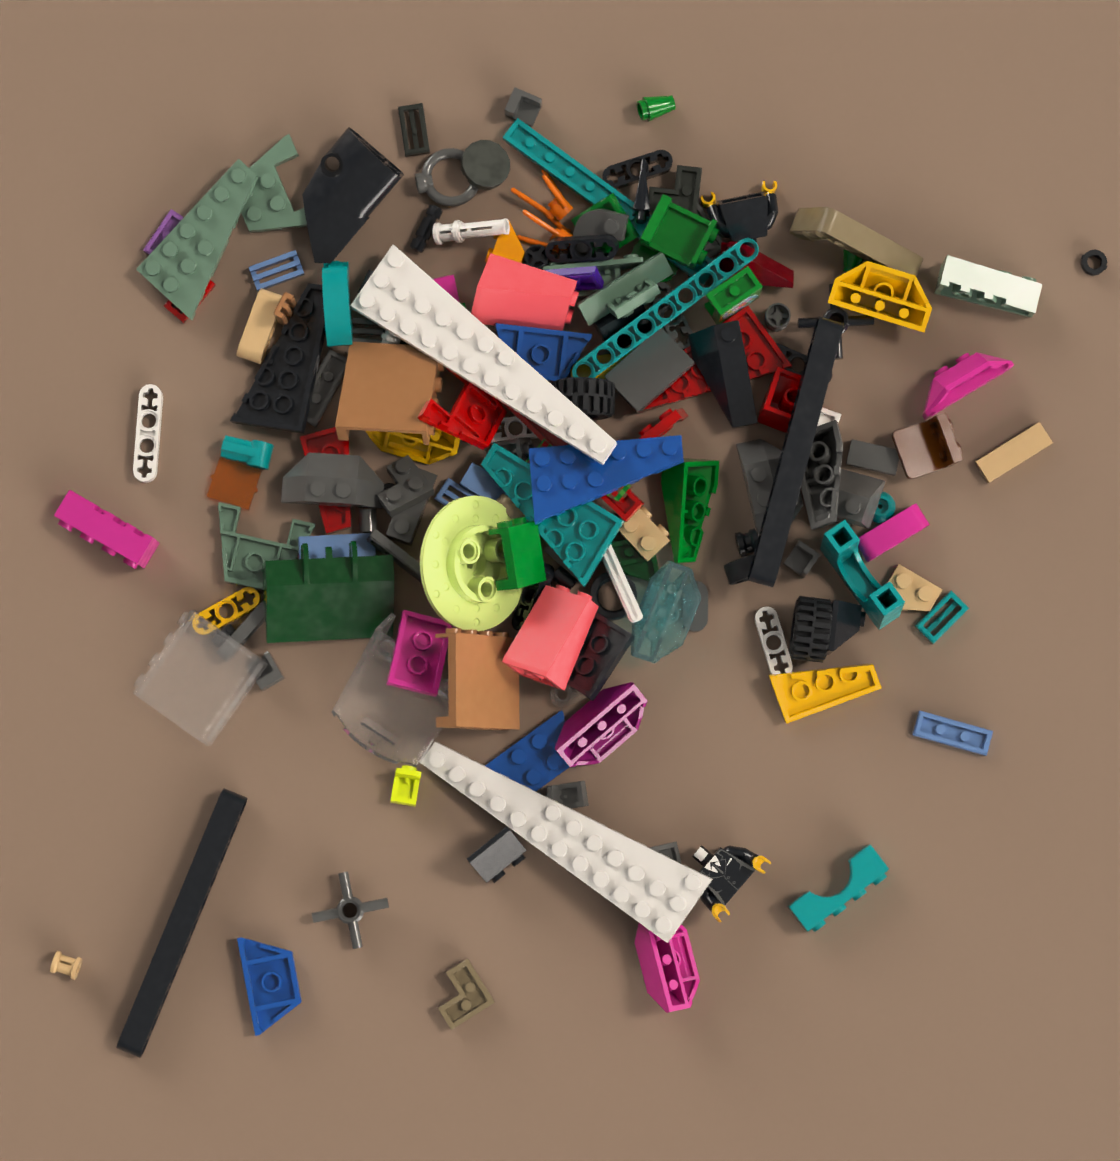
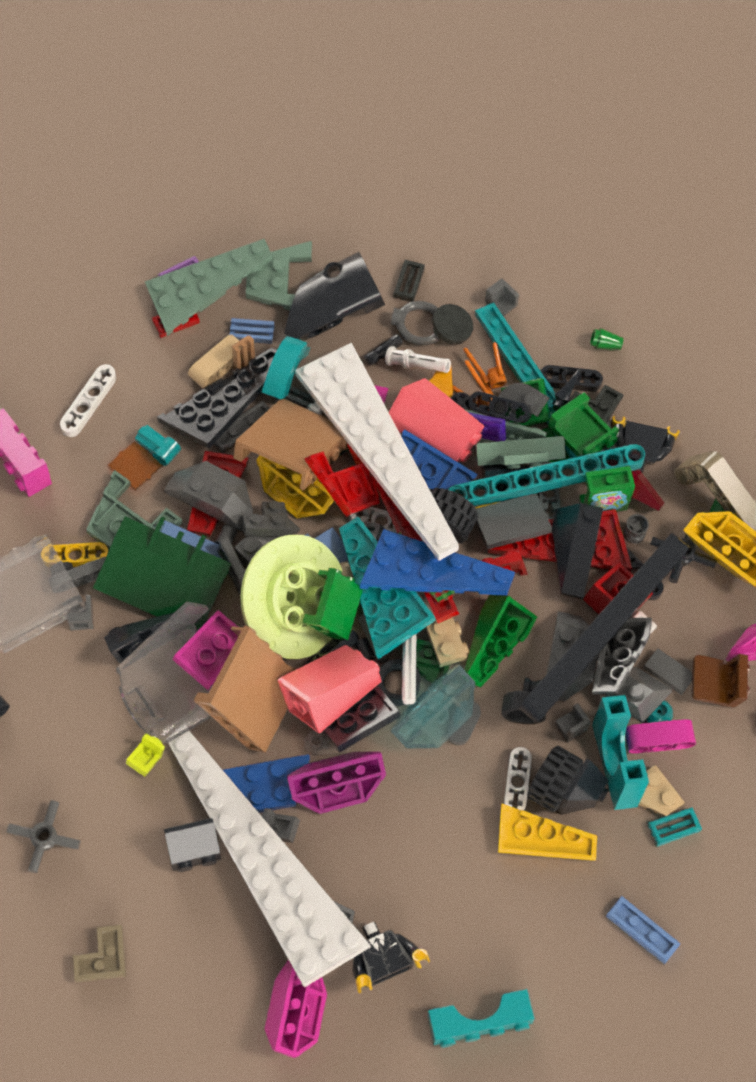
camera: 20 degrees right, 20 degrees down
(331, 678) = (129, 637): none -> black wedge

